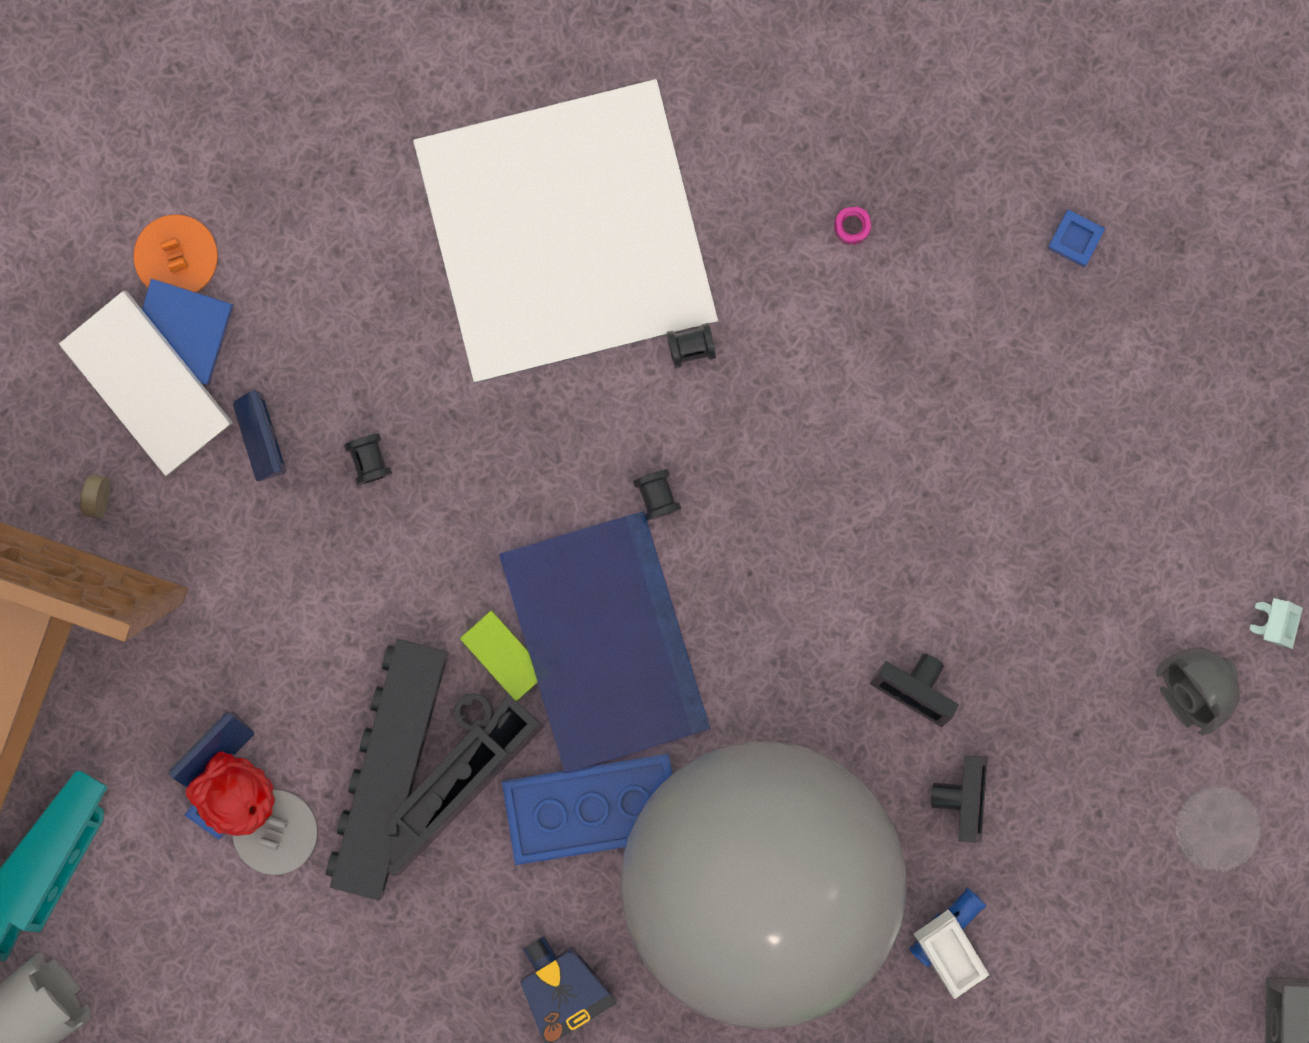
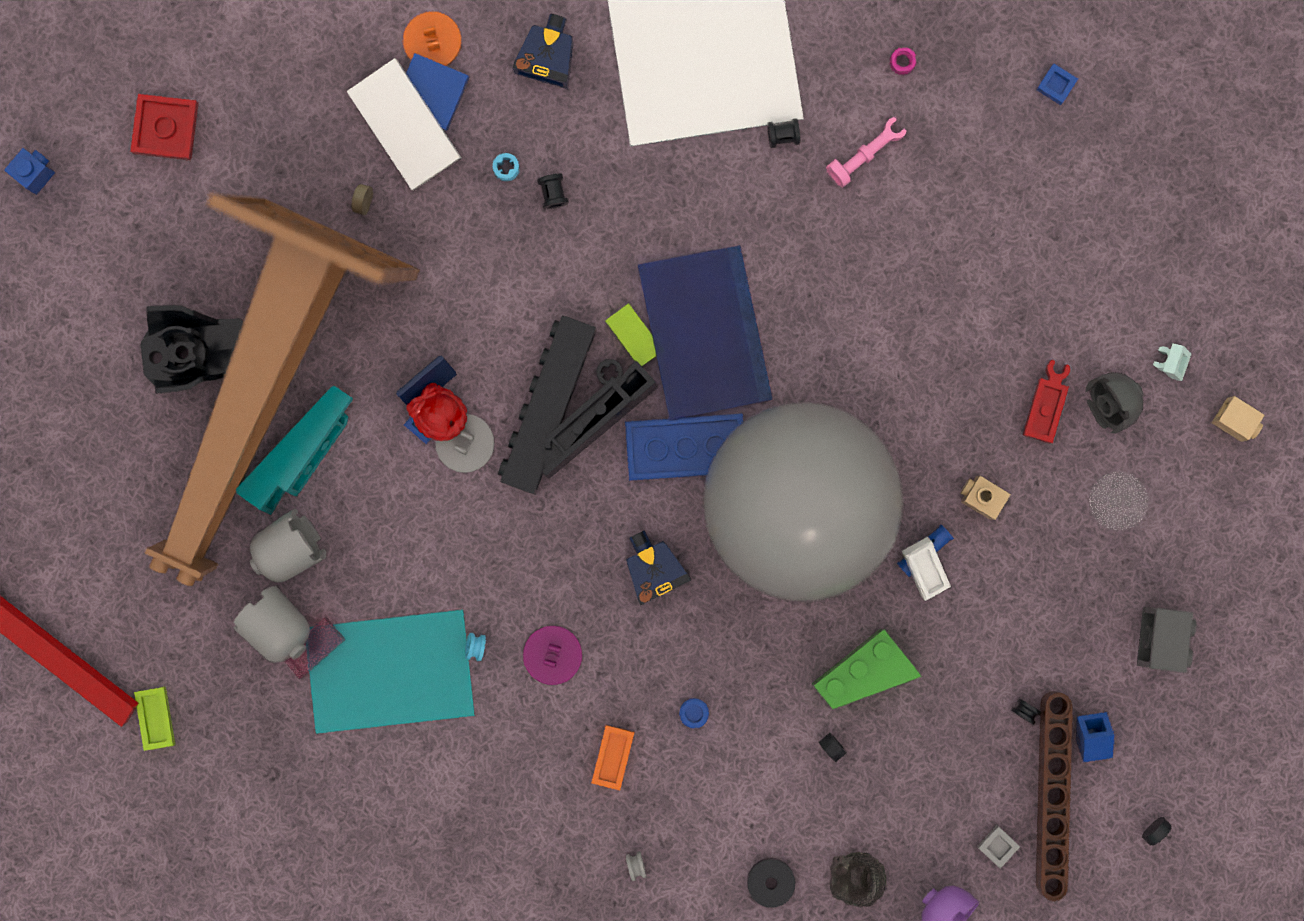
camera: 10 degrees right, 0 degrees up
(259, 436) = (478, 168): dark blue slope -> none
(288, 421) = (499, 160): none -> medium azure bush
(341, 262) = (546, 53): none -> dark blue torso
(657, 494) = (750, 234): black bush -> none
(779, 395) = (841, 173): none -> bright pink piece
(916, 689) = (918, 384): black tile -> none
(965, 797) = (945, 462): black tile -> none
(1025, 843) = (984, 497): none -> tan brick
(1103, 702) = (1047, 405): none -> red plate

